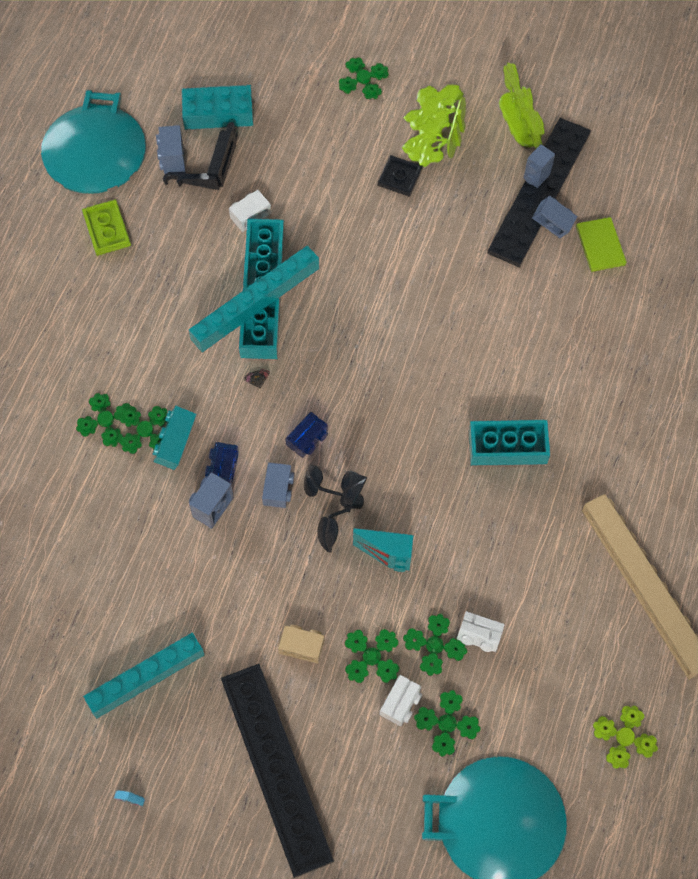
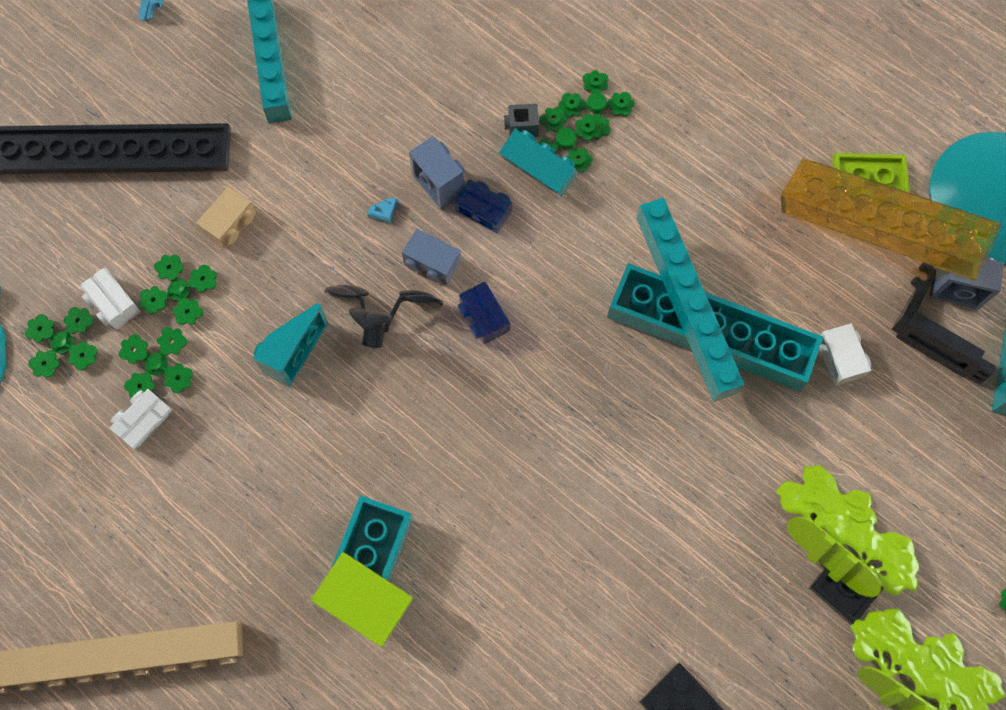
camera: 110 degrees right, 5 degrees up
(137, 457) = (522, 118): none -> dark grey brick
(147, 200) = (890, 218): none -> clear yellow brick
(250, 536) = (384, 210): none -> medium azure tile
(257, 378) = (589, 285): clear smoke tile -> none
(361, 182) = (849, 523): none -> lime plant
(538, 427) = (362, 599): none -> lime tile

